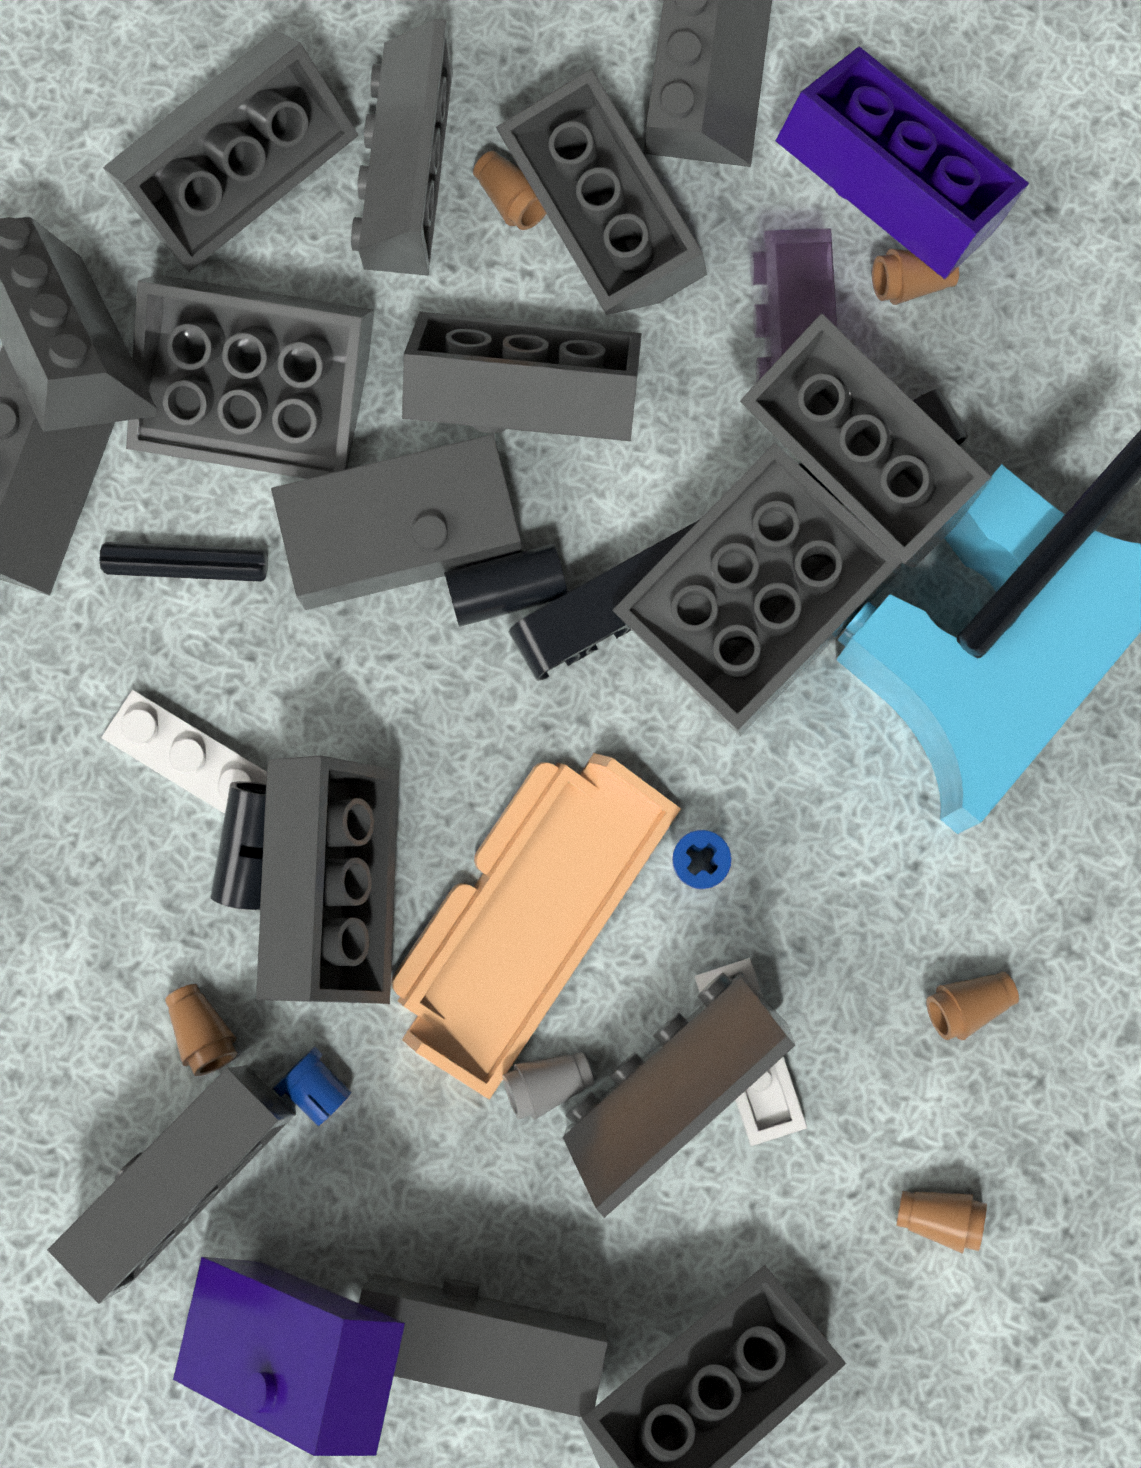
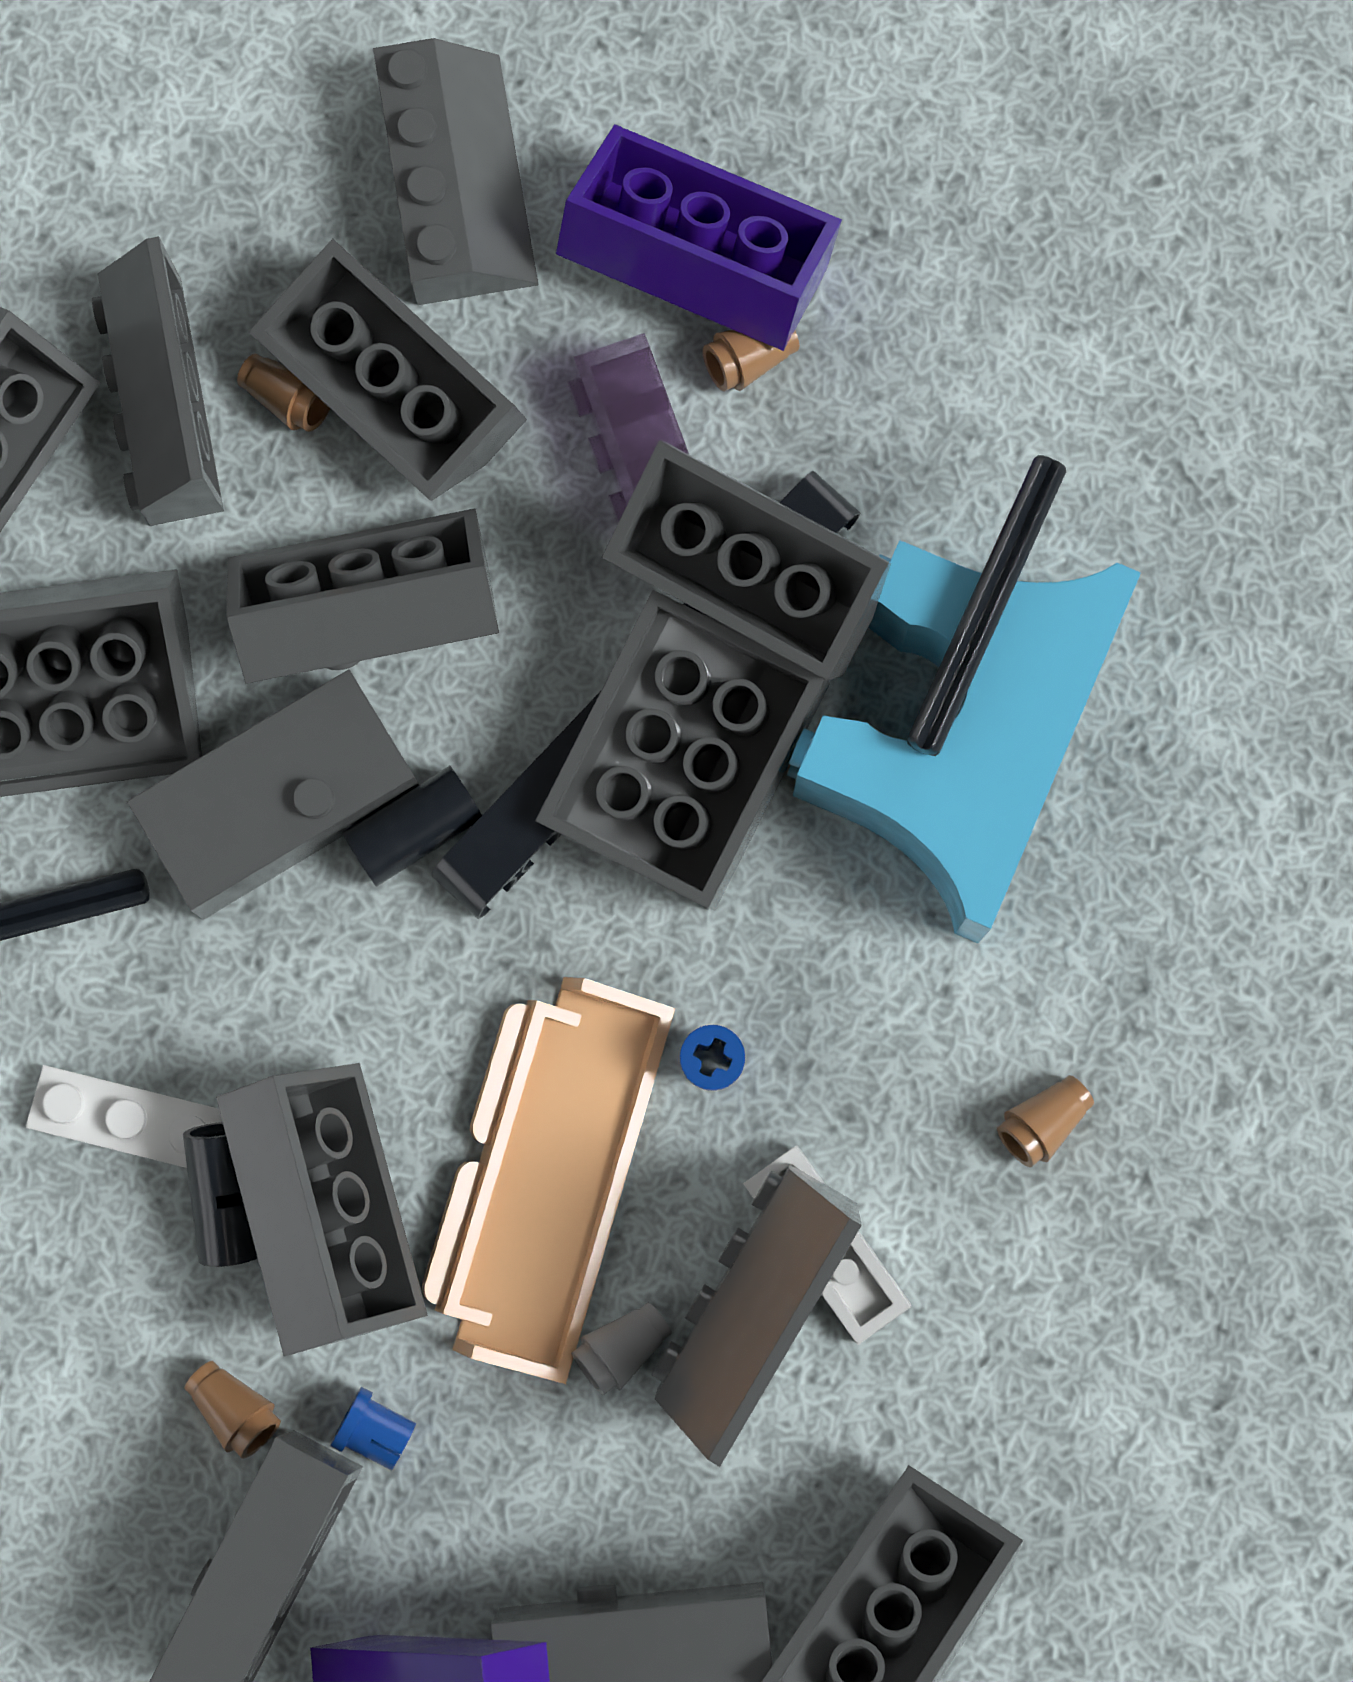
camera: 15 degrees left, 0 degrees up
(944, 1218) = (1083, 1356): medium nougat cone -> none

